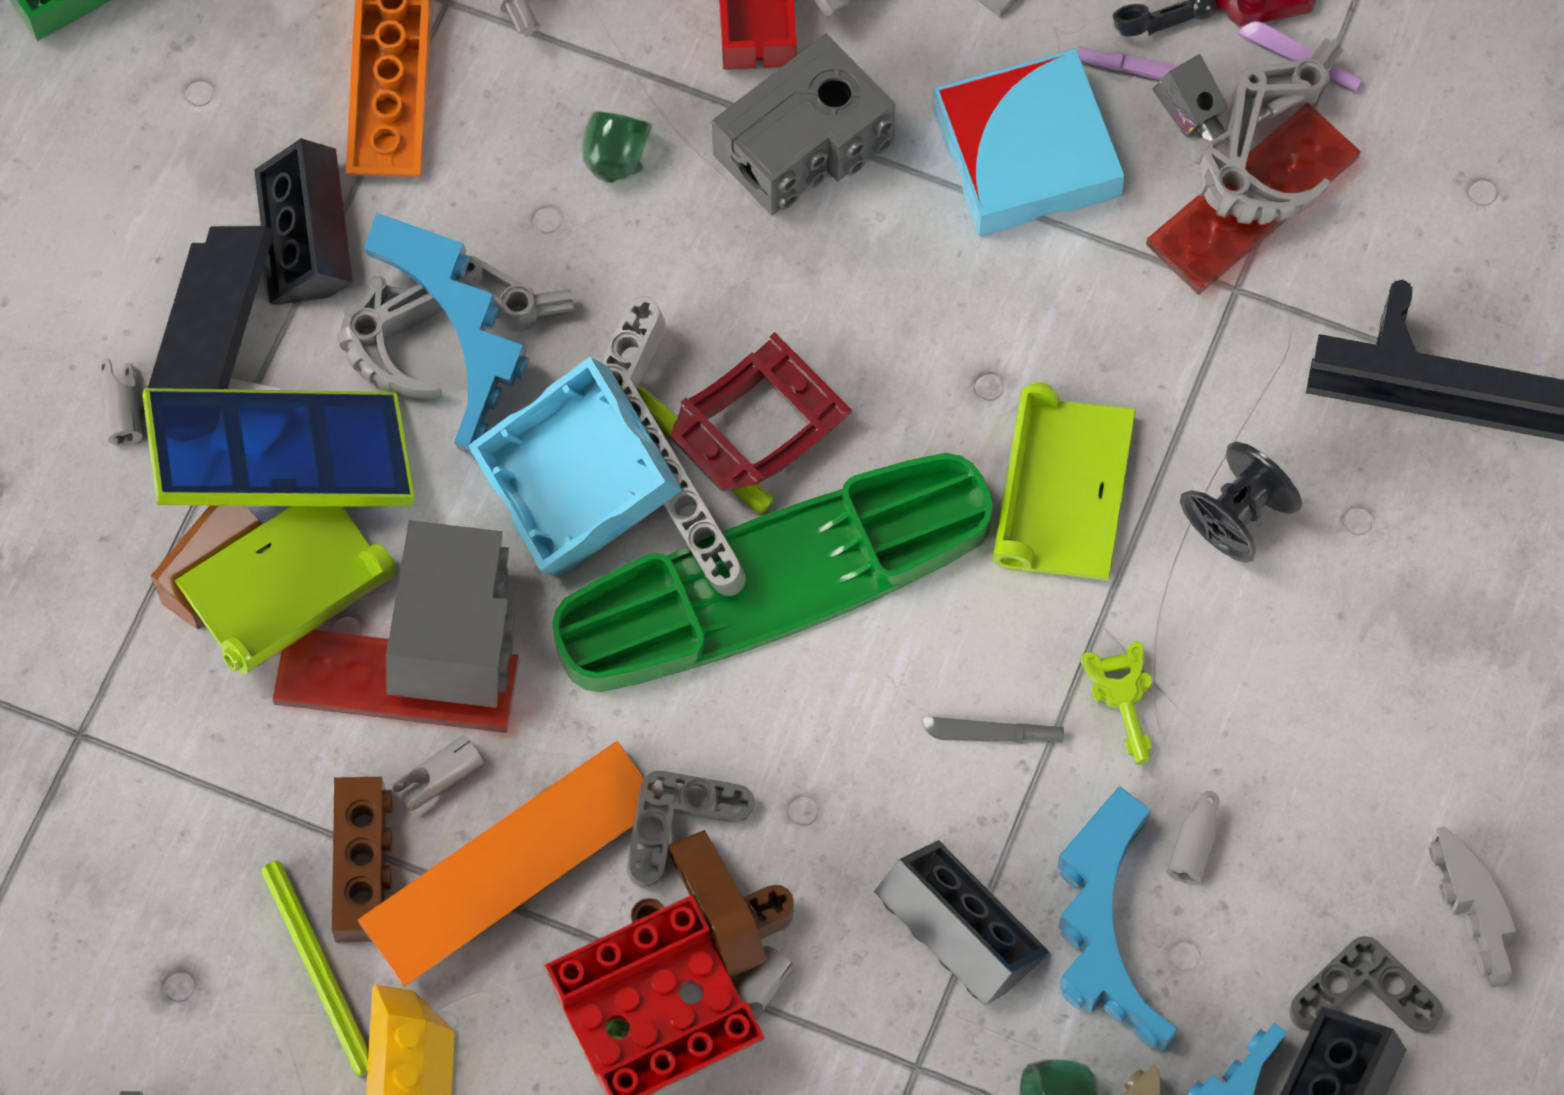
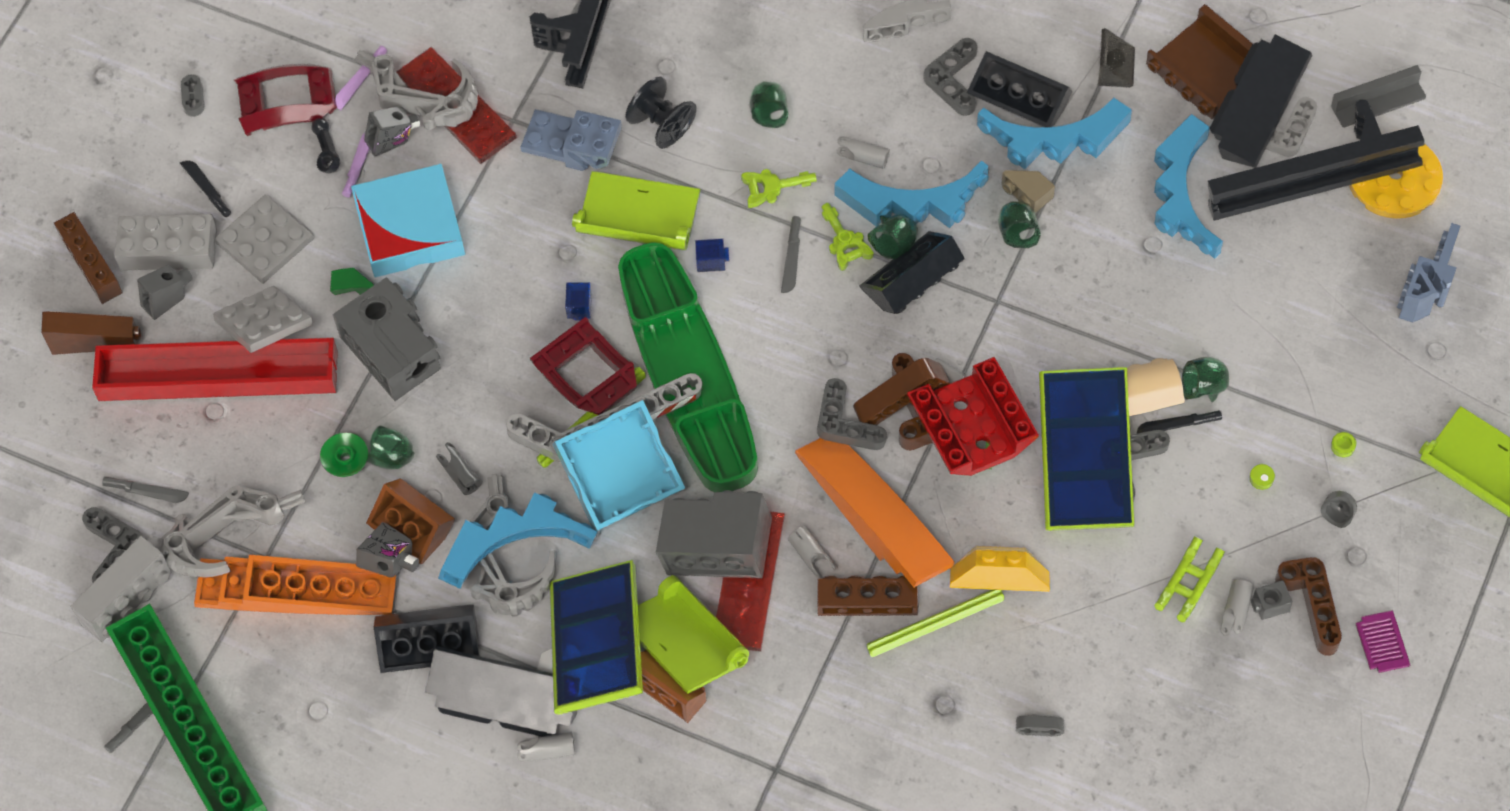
camera: 85 degrees left, 5 degrees down
(437, 153) = (386, 552): none -> dark grey torso
(501, 187) = (412, 516): none -> dark orange slope
(586, 249) = (459, 471): none -> dark grey piece
(605, 73) = (340, 446): none -> green dish
(888, 402) = (578, 300): none -> clear blue brick
(917, 71) = (347, 281): none -> green slope
(981, 599) = (711, 255): none -> clear blue brick
(1024, 813) = (845, 239): none -> lime piece
(1025, 891) = (896, 238): none -> clear green piece
(1190, 370) = (576, 140): none -> sand blue piece
(1284, 675) = (765, 100): none -> clear green piece

